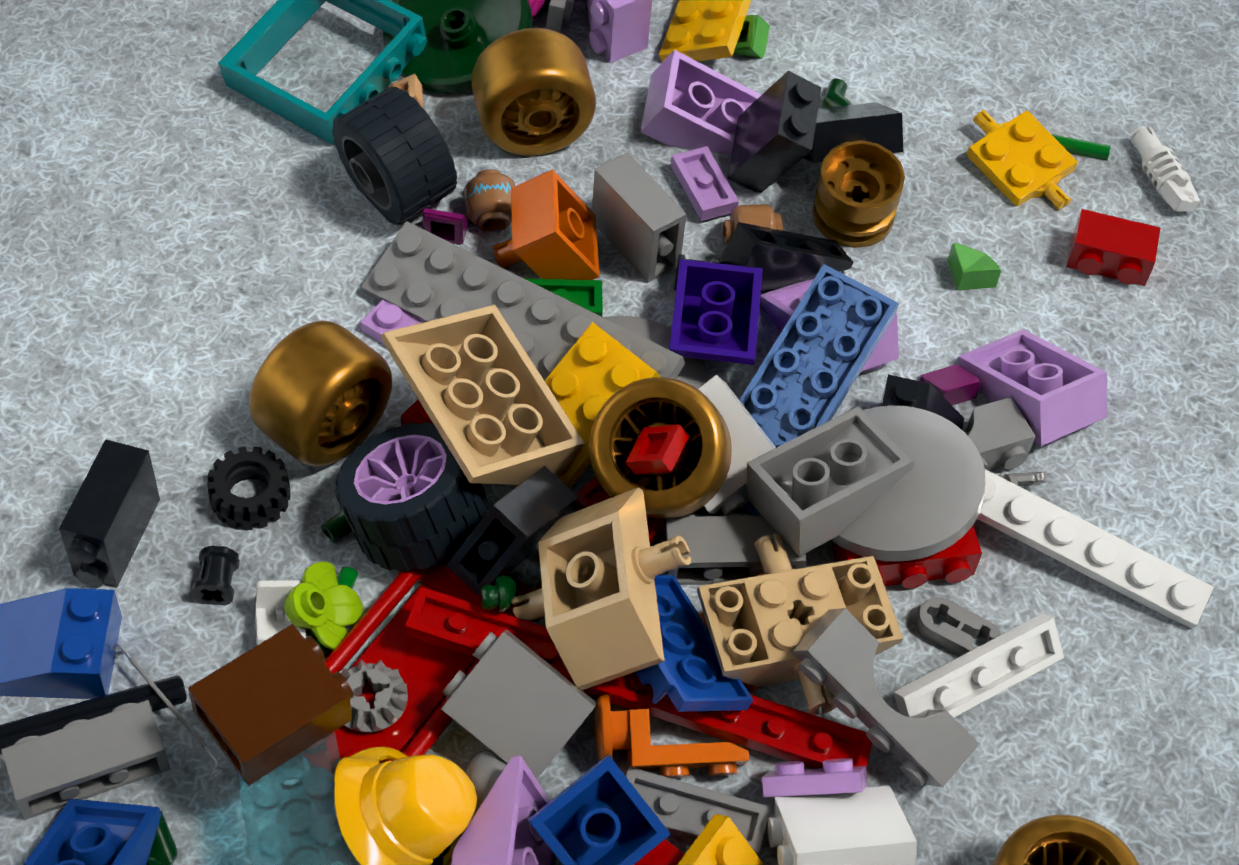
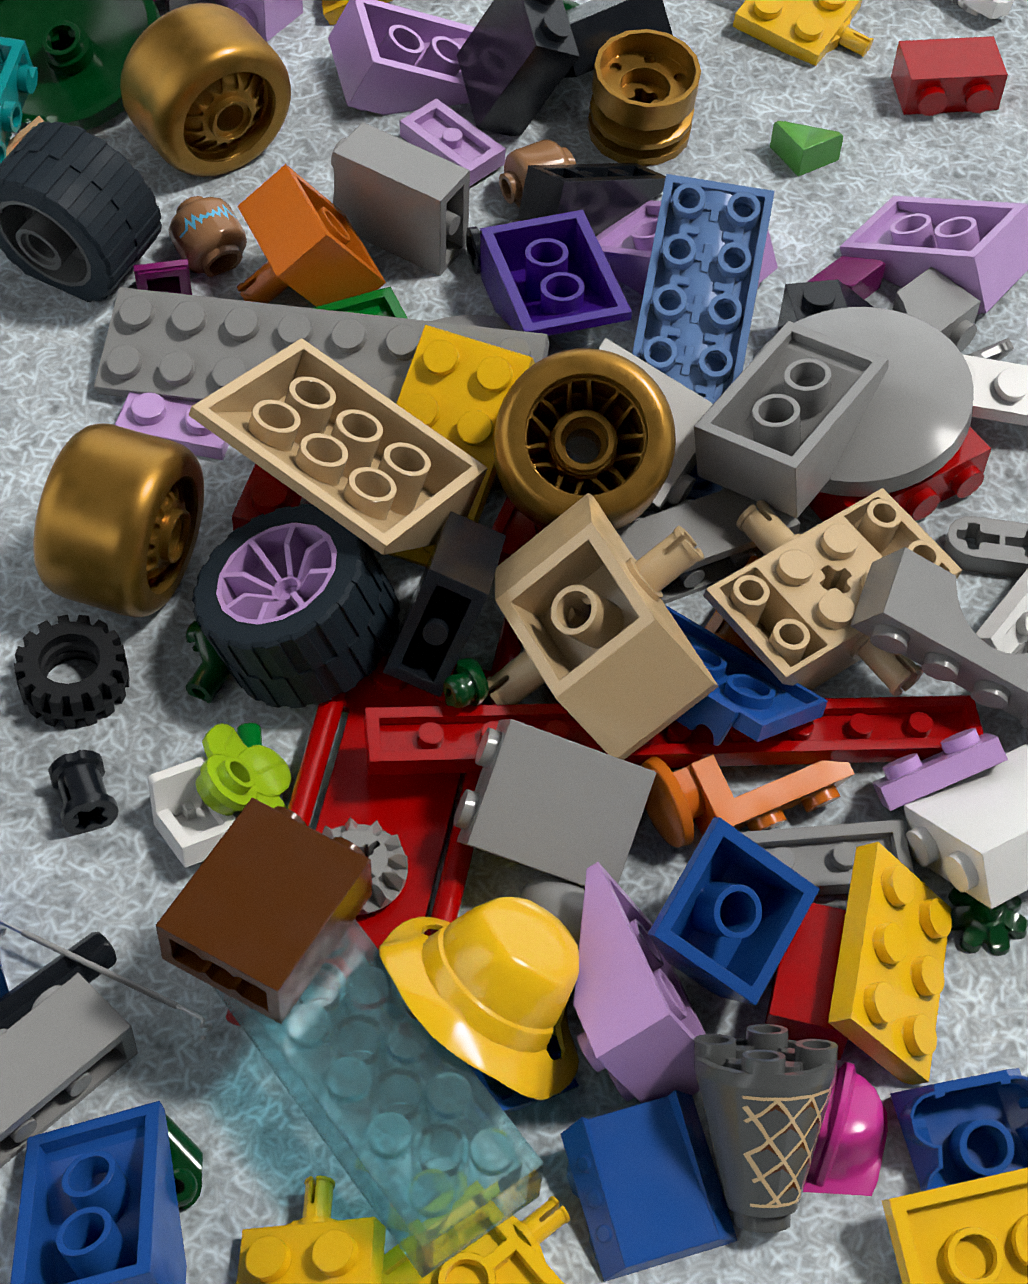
camera: 20 degrees left, 0 degrees up
(657, 449) = (592, 440): red plate -> none

